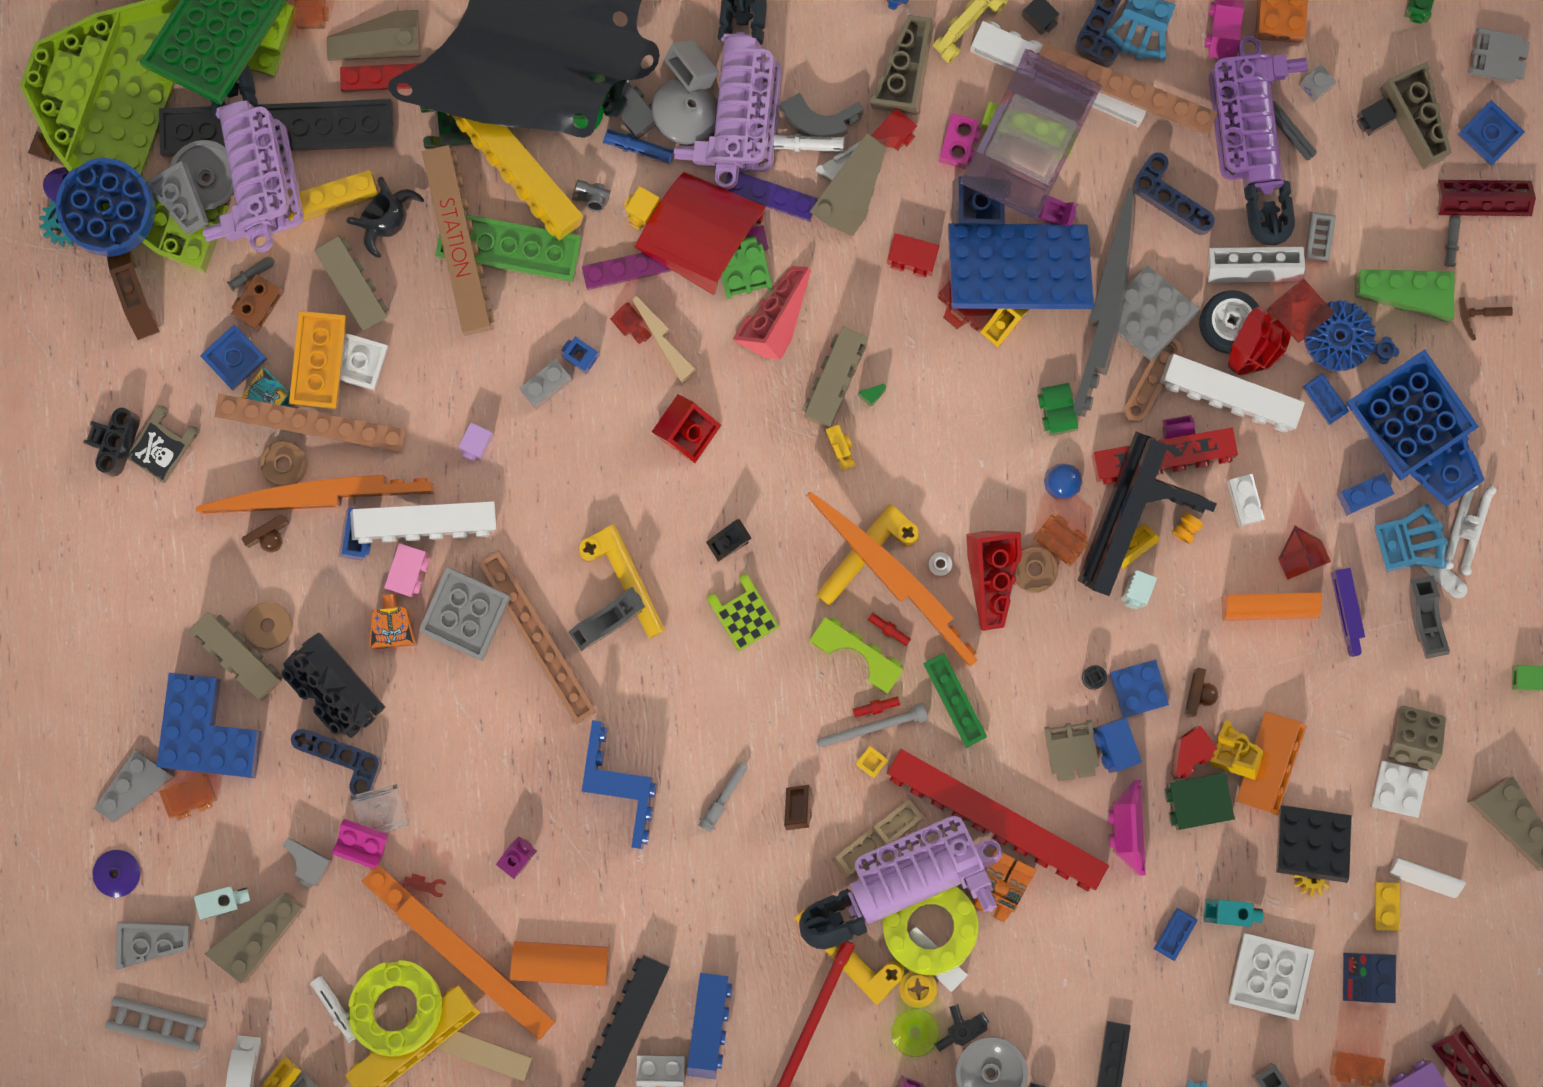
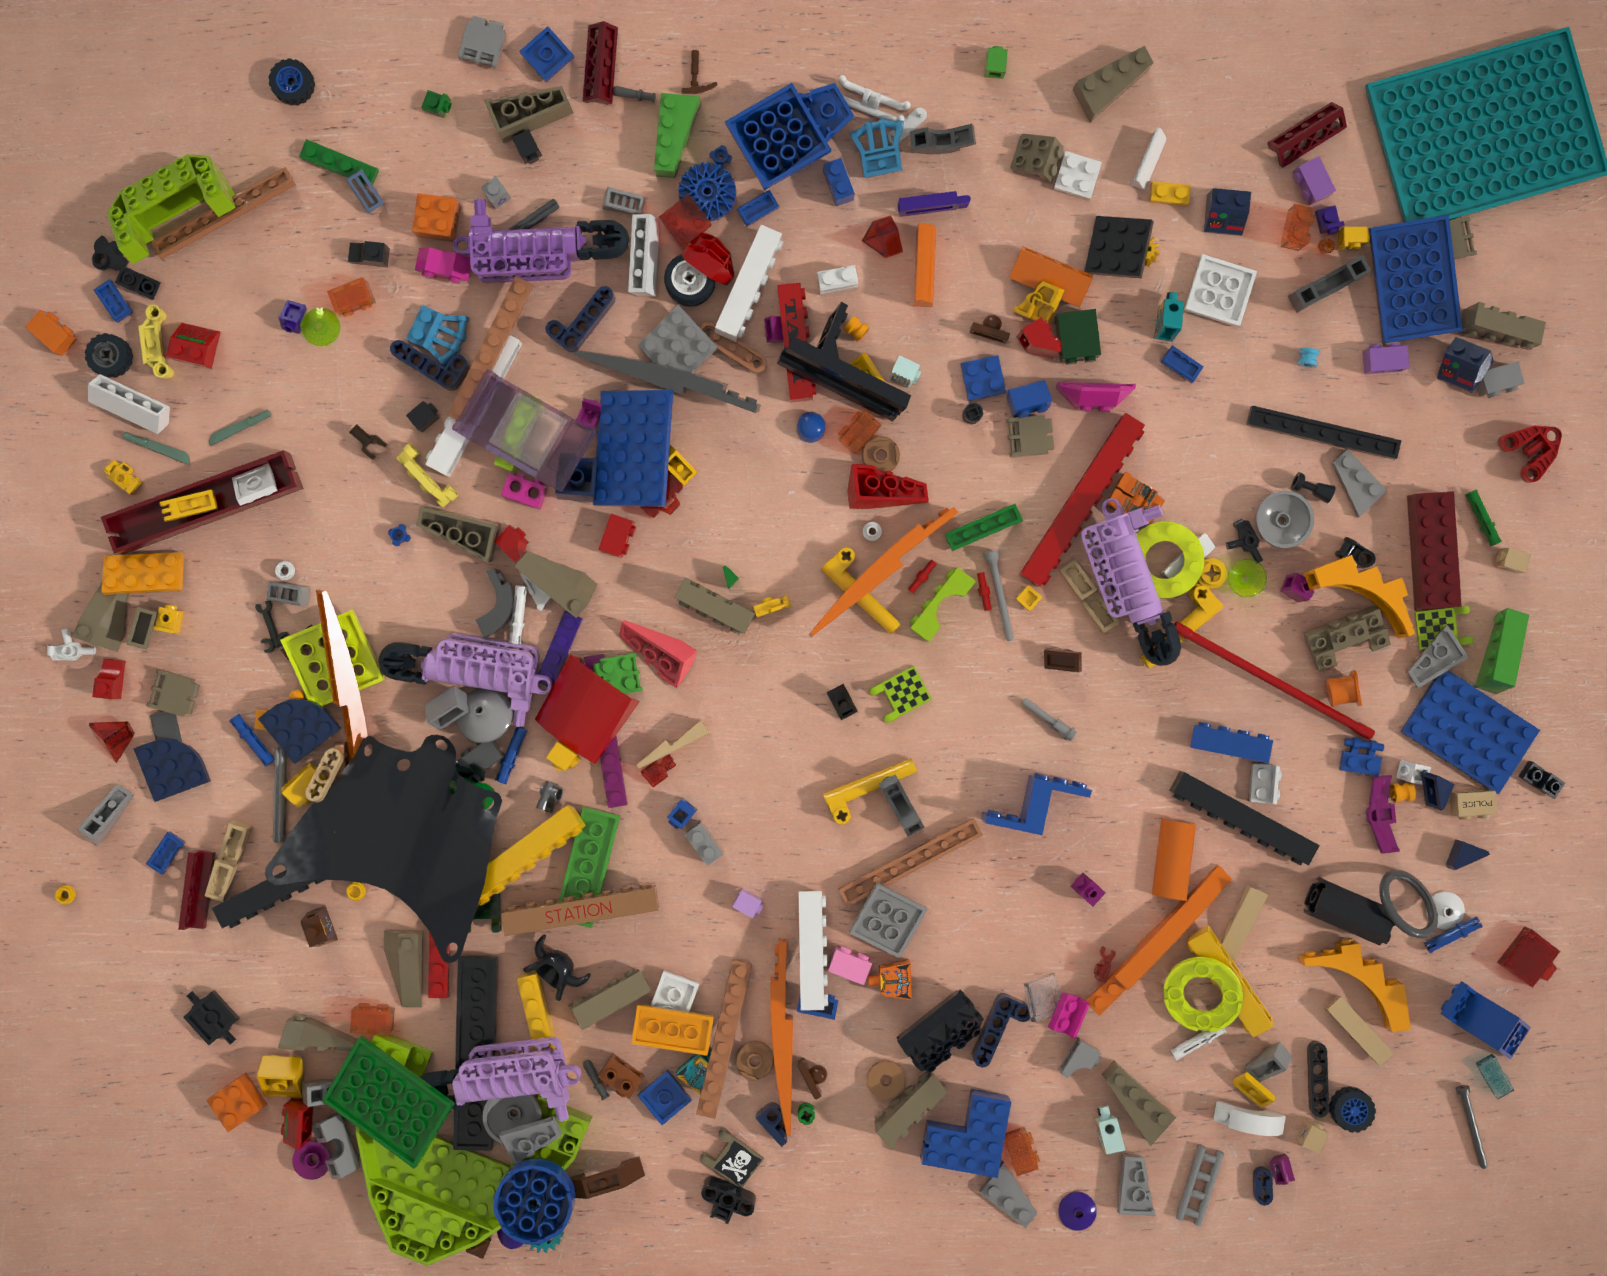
camera: 90 degrees left, 5 degrees up
(207, 486) = (770, 1123): none -> dark blue plate
(229, 532) = (802, 1117): none -> green bush
(686, 428) = (748, 730): red slope -> none
(1058, 409) = (752, 426): green brick -> none

